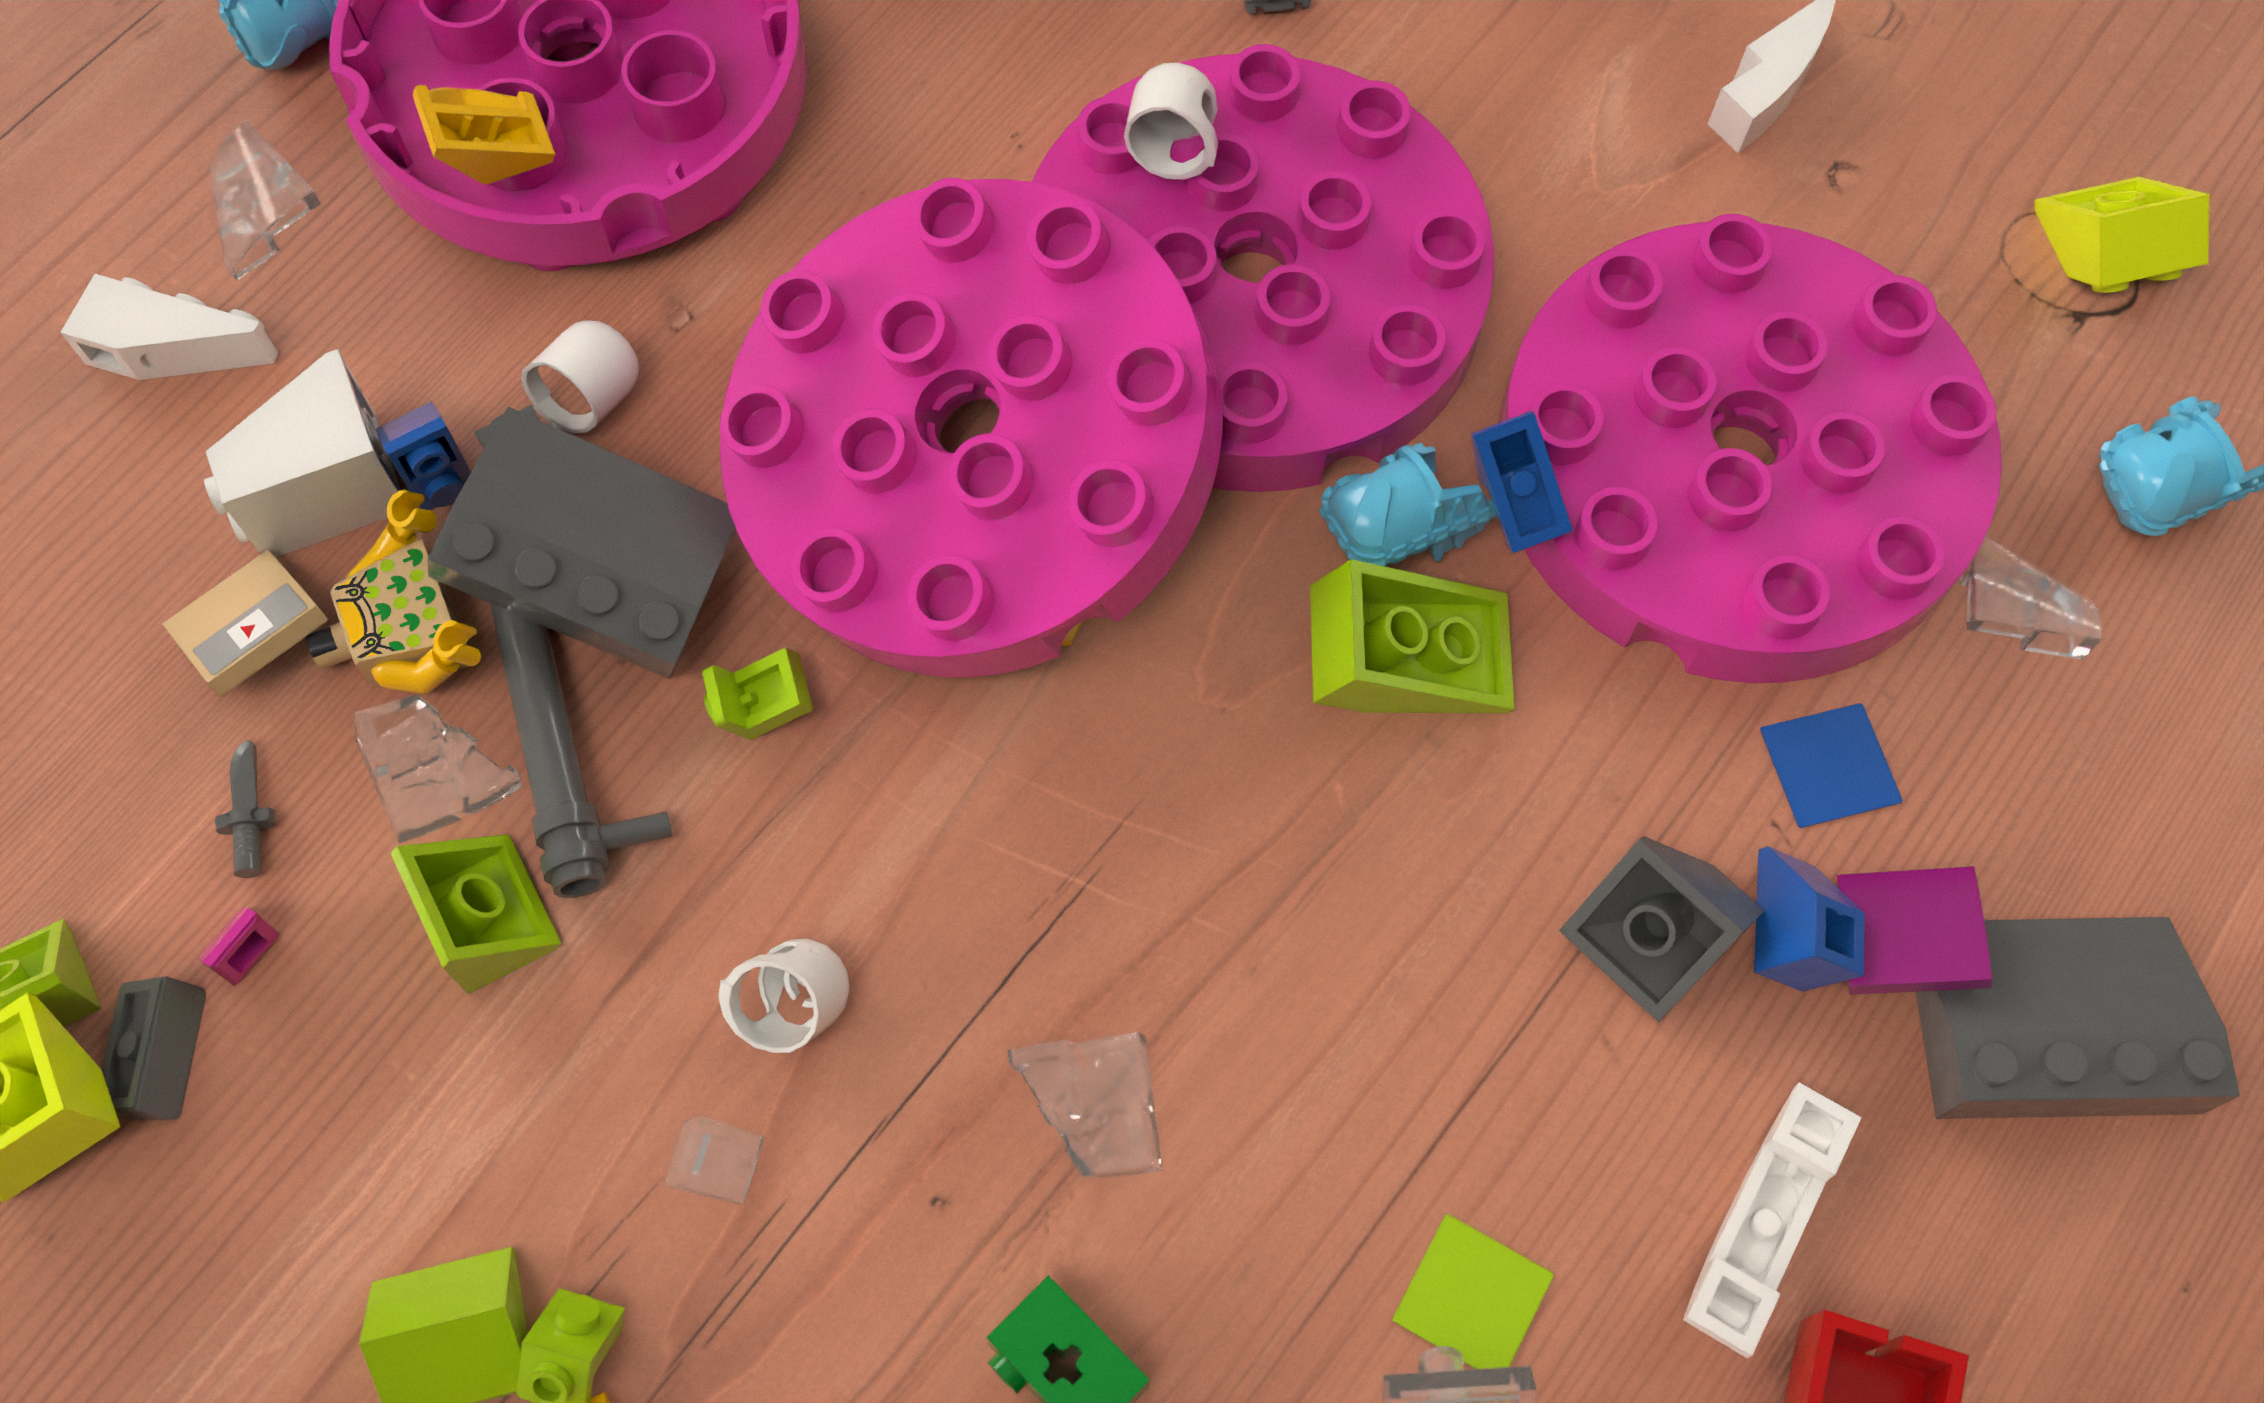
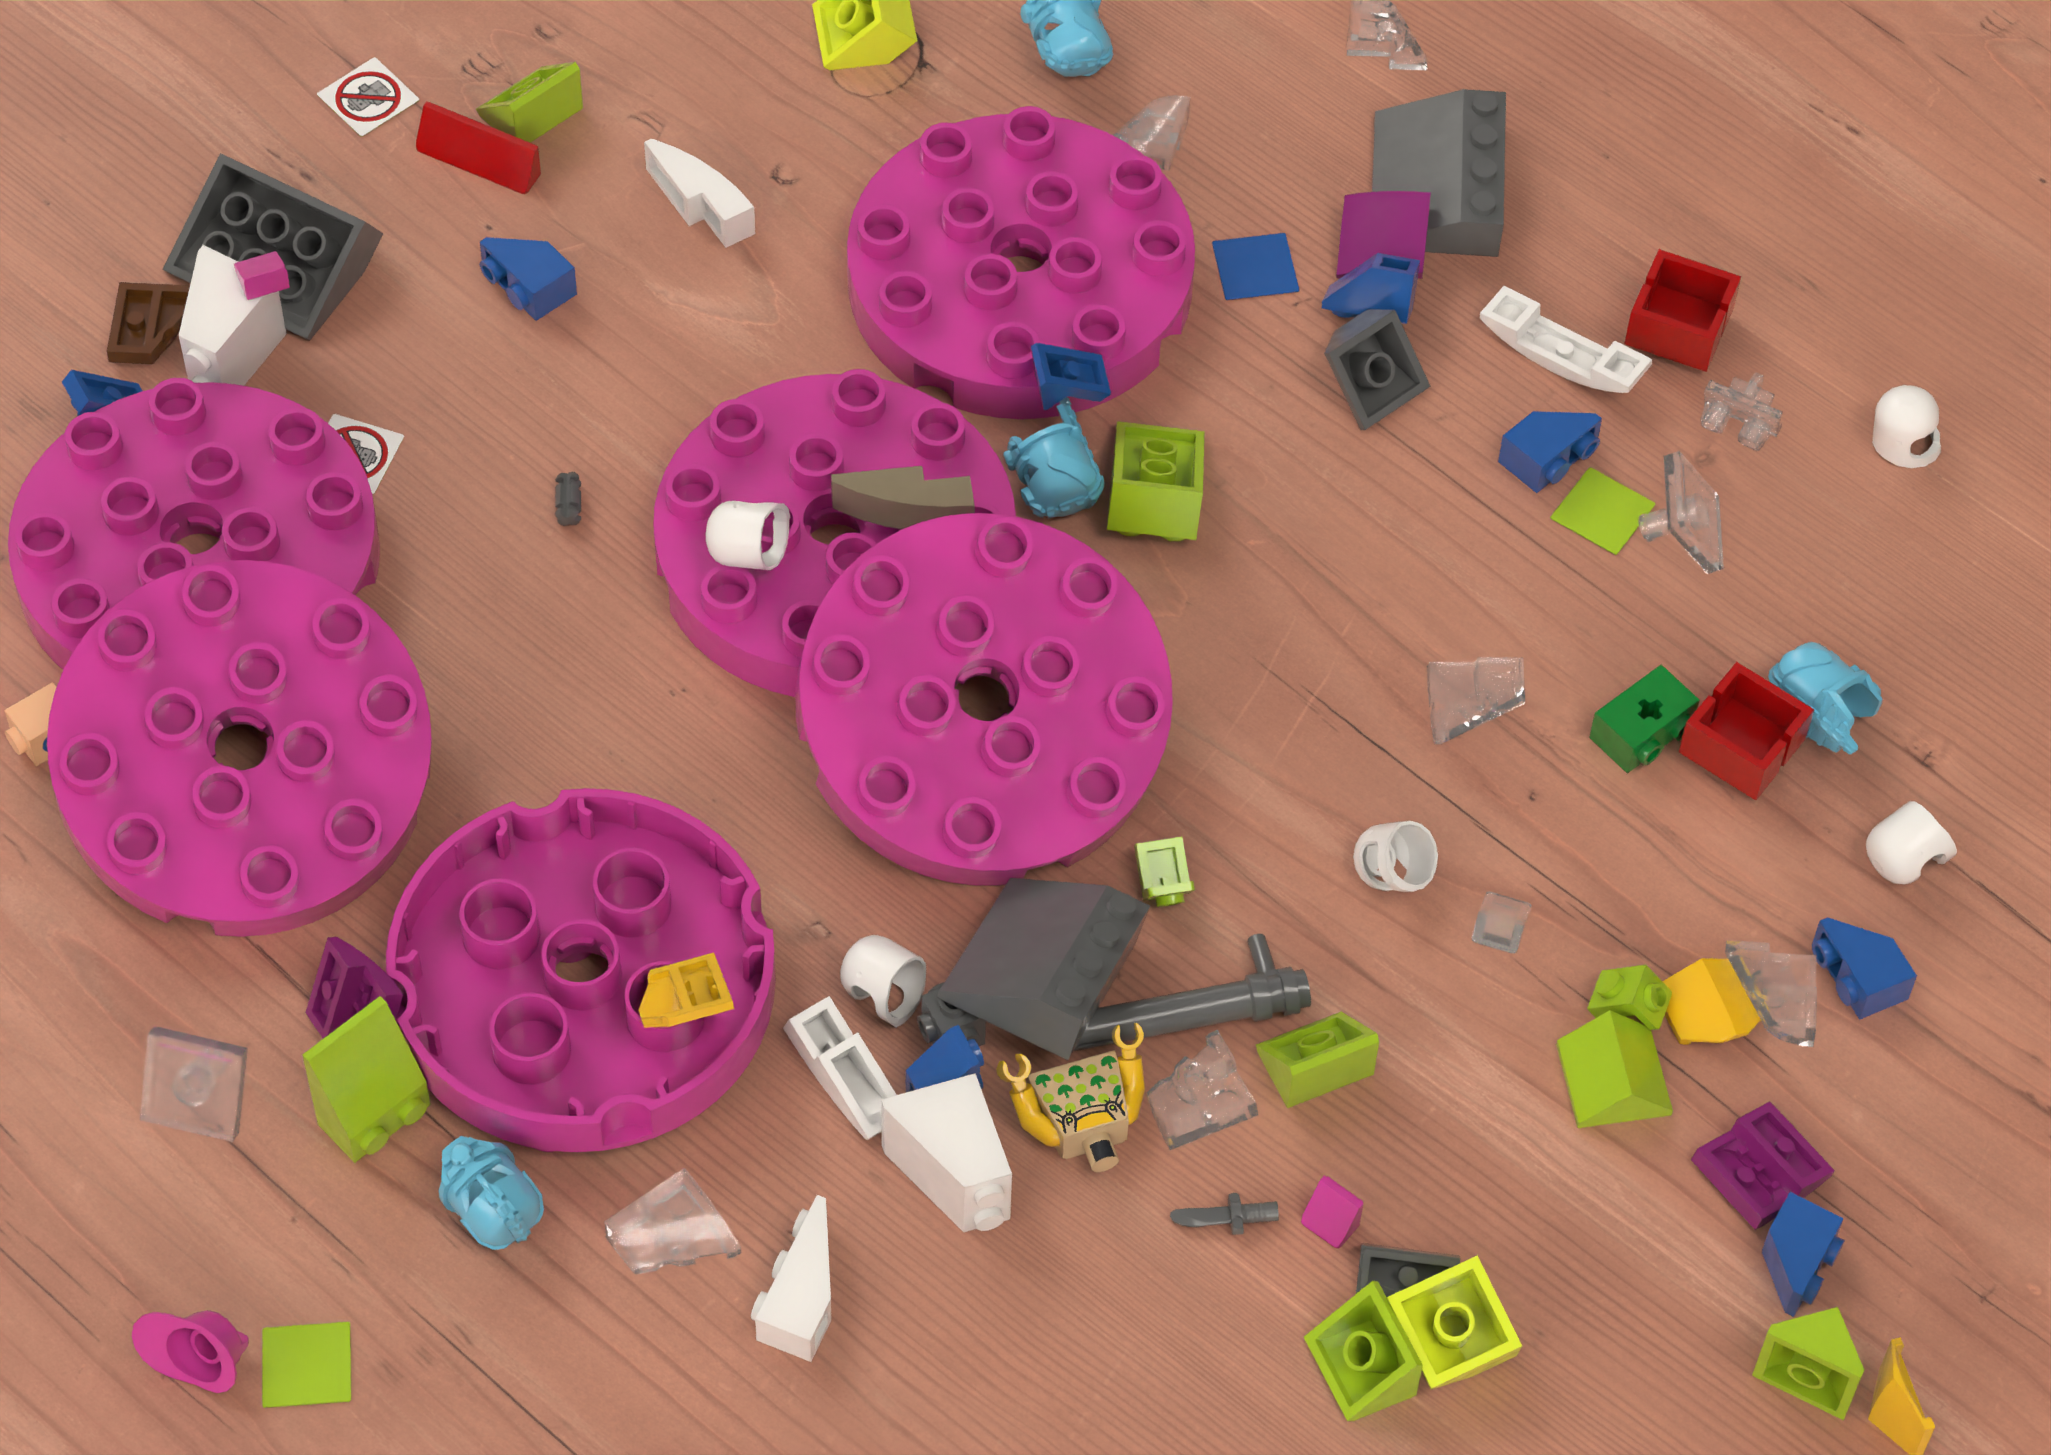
camera: 85 degrees left, 10 degrees down
(244, 623) = (1077, 1209): tan tile -> none
(465, 349) = (841, 1064): none -> white slope
(1260, 299) = (900, 496): none -> dark tan slope
(1568, 1199) = (1547, 445): none -> blue slope

